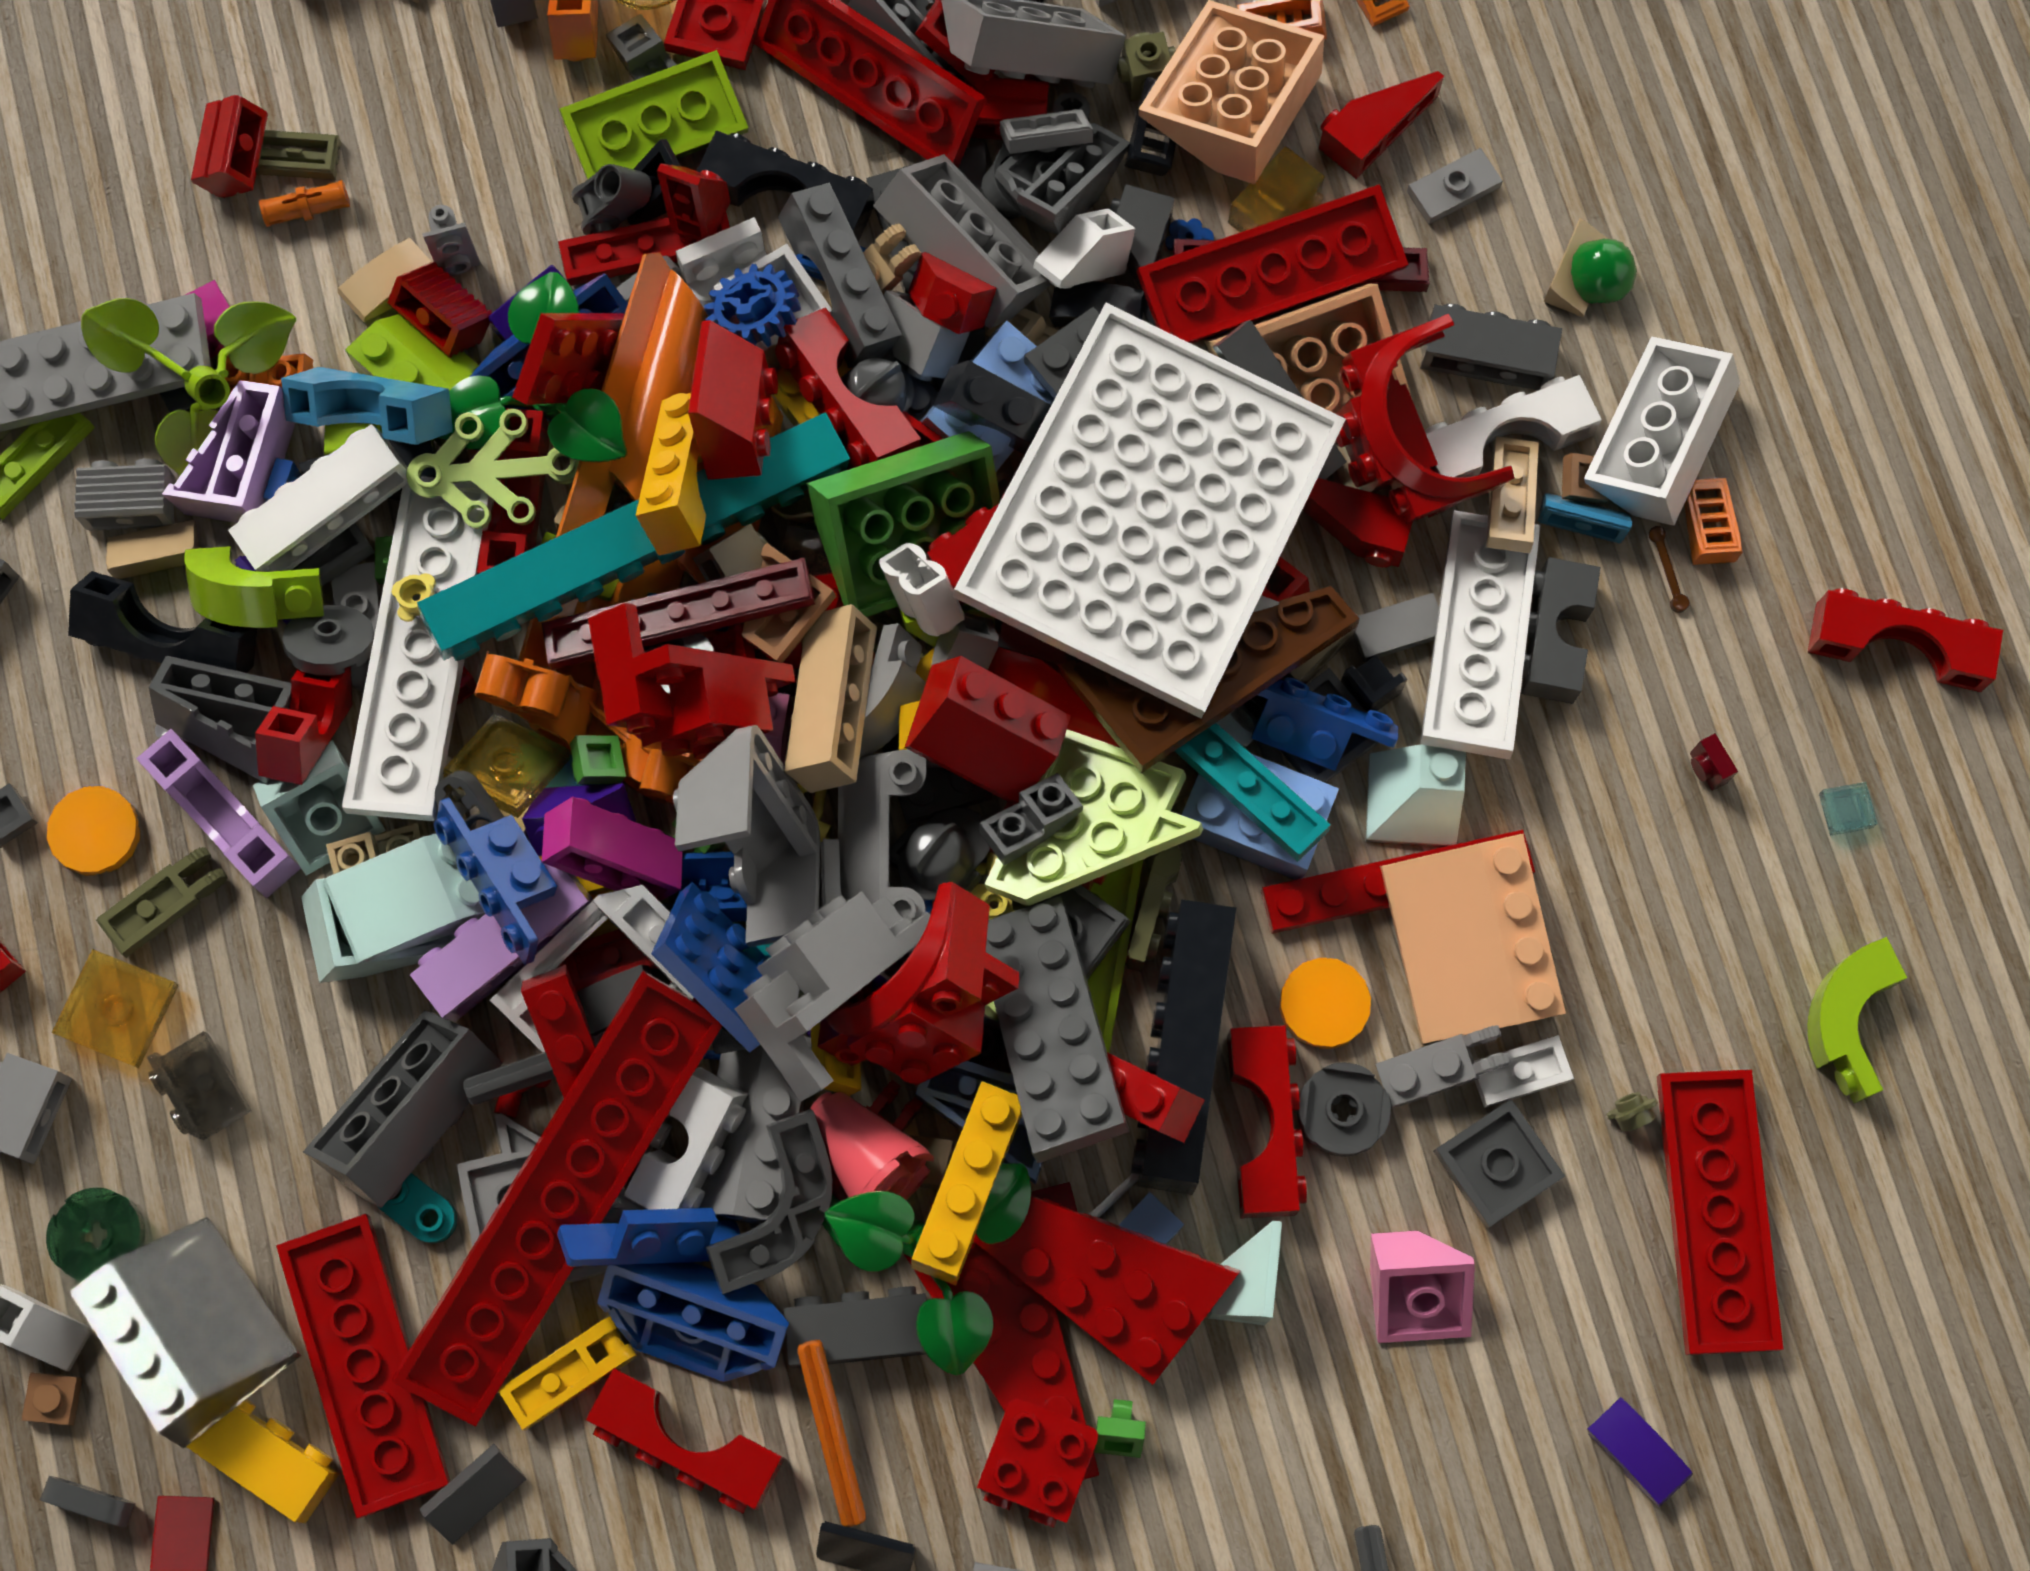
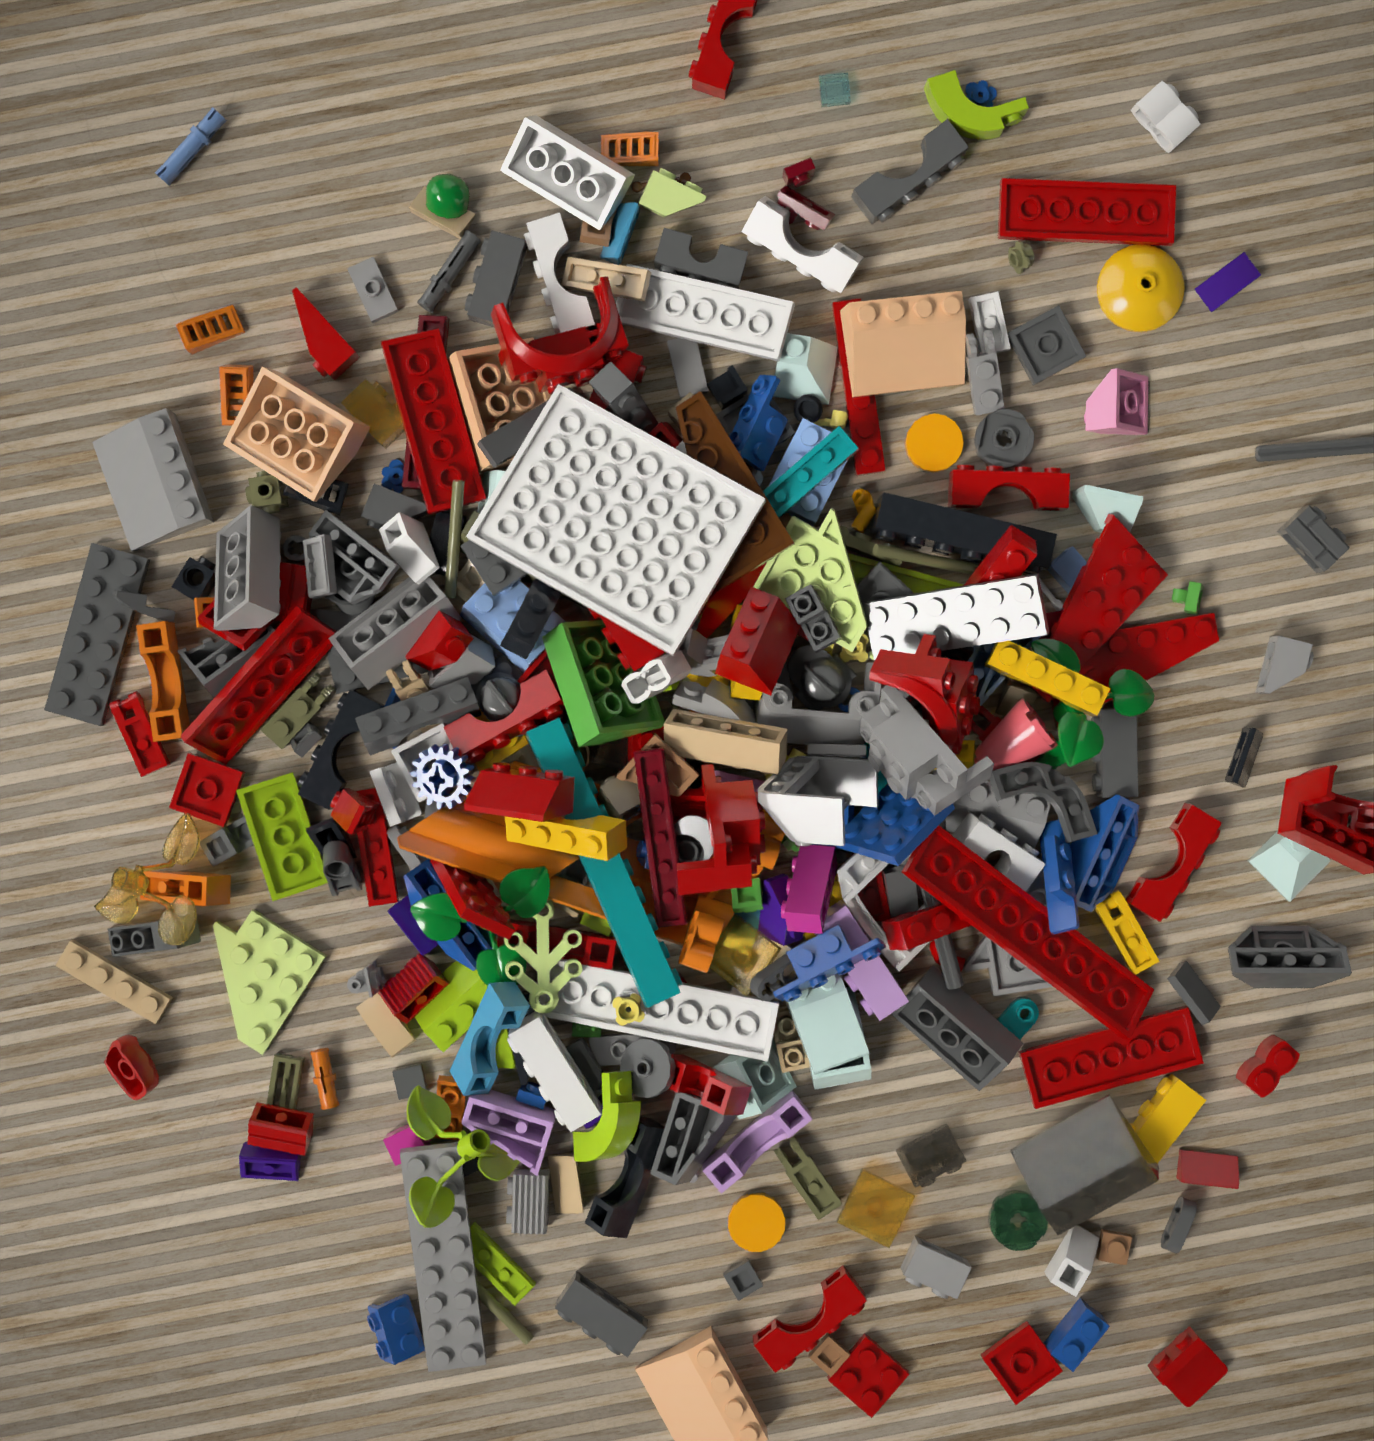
camera: 85 degrees left, 15 degrees up
(178, 140) = (268, 1164): none -> dark purple slope
(310, 320) = (407, 1079): none -> dark grey tile
(452, 116) = (264, 975): none -> yellowish green wing
(797, 140) = (305, 739): none -> dark grey tile
(831, 1433) = (1179, 773): orange axle -> none
(835, 128) = (296, 713): none -> olive hinge
(1037, 1462) = (1208, 649): red bracket -> none
(1131, 305) = (454, 538): none -> olive bar
(1141, 985) = (924, 559): none -> olive bar
(1227, 895) = (865, 508): none -> light orange arm
(1332, 518) = (622, 398): none -> dark grey brick
(1342, 854) = (838, 418): none -> light yellow hand
(1354, 806) = (809, 408): none -> black plate
(1479, 275) = (448, 272): none -> dark grey pin
(1579, 1316) = (1127, 301): none -> yellow dish
(1623, 725) = (770, 227): none -> white arch
(1647, 573) = (667, 196): none -> yellowish green slope
(1661, 773) = (813, 213): none -> dark red plate
(1775, 972) = (880, 194): none -> dark grey arch
(1883, 1021) = (988, 93): none -> blue plant
(1891, 1325) = (1166, 116): none -> white brick

